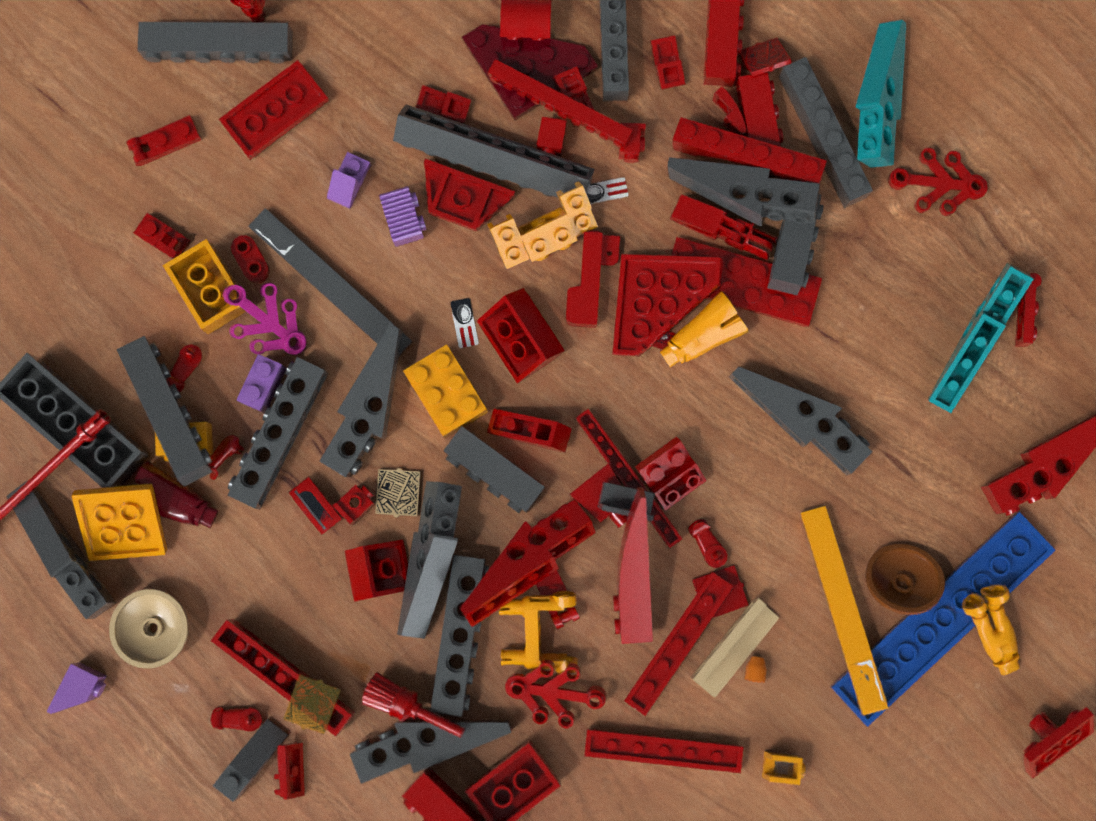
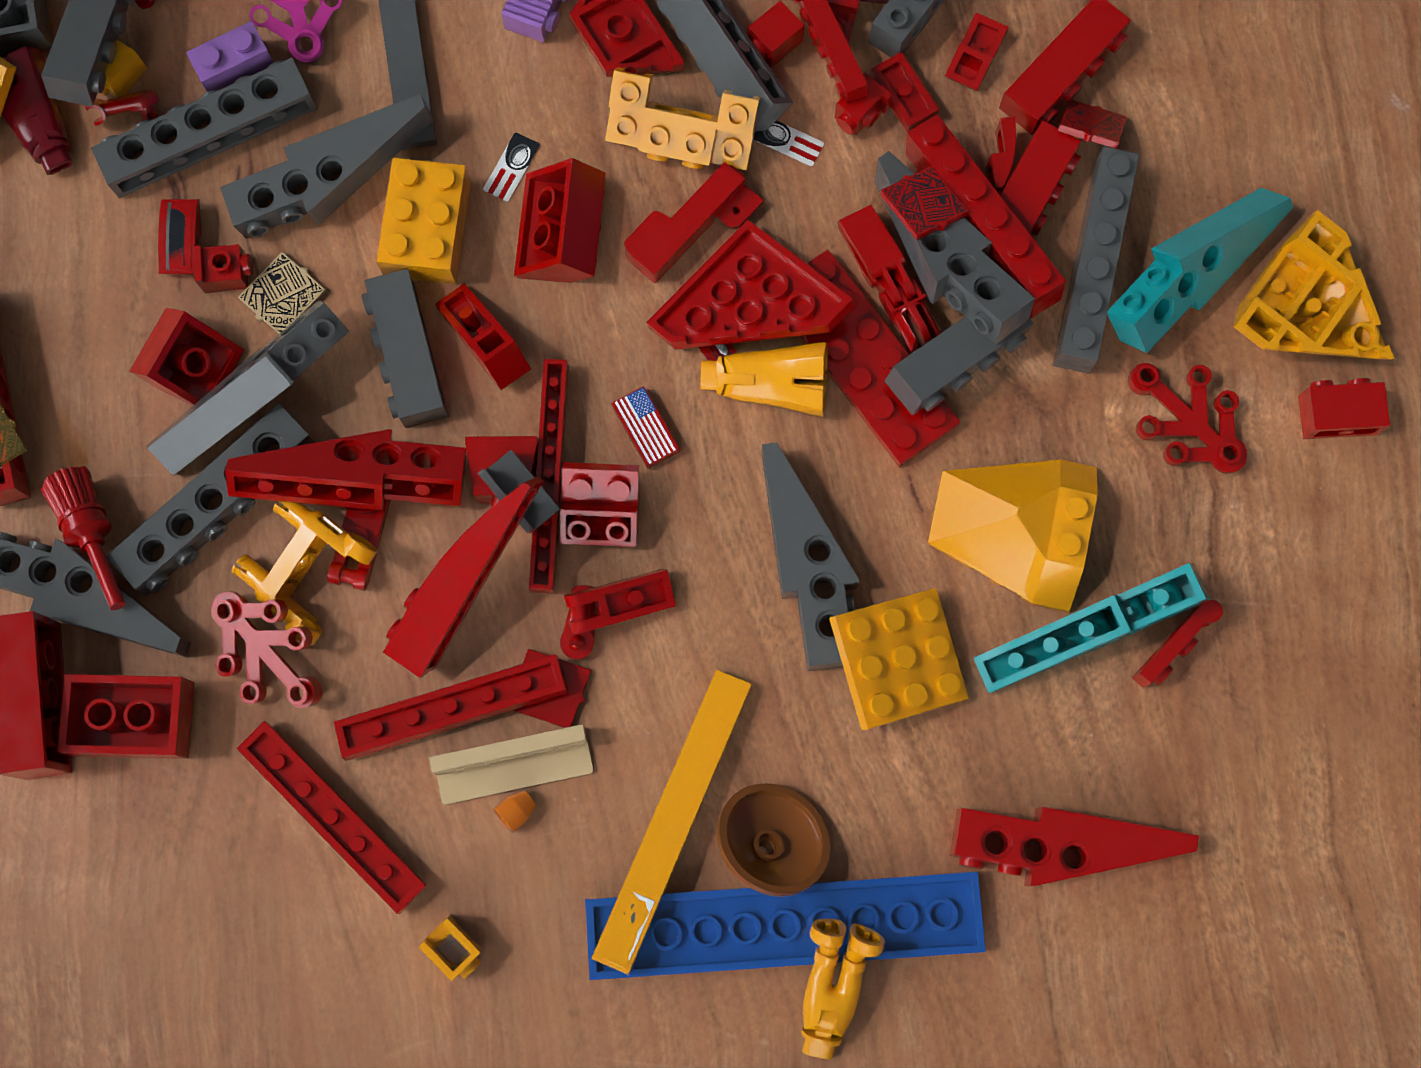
camera: 35 degrees right, 5 degrees down
(654, 116) = (909, 96): none -> red plate
(657, 411) = (645, 427): none -> tile
(715, 173) = (924, 202): none -> red piece
(723, 516) = (621, 600): none -> red plate
(893, 432) = (898, 658): none -> light orange plate
(897, 309) = (1019, 525): none -> light orange wedge
(955, 68) = (1313, 298): none -> light orange wedge
(1016, 116) = (1343, 409): none -> red brick

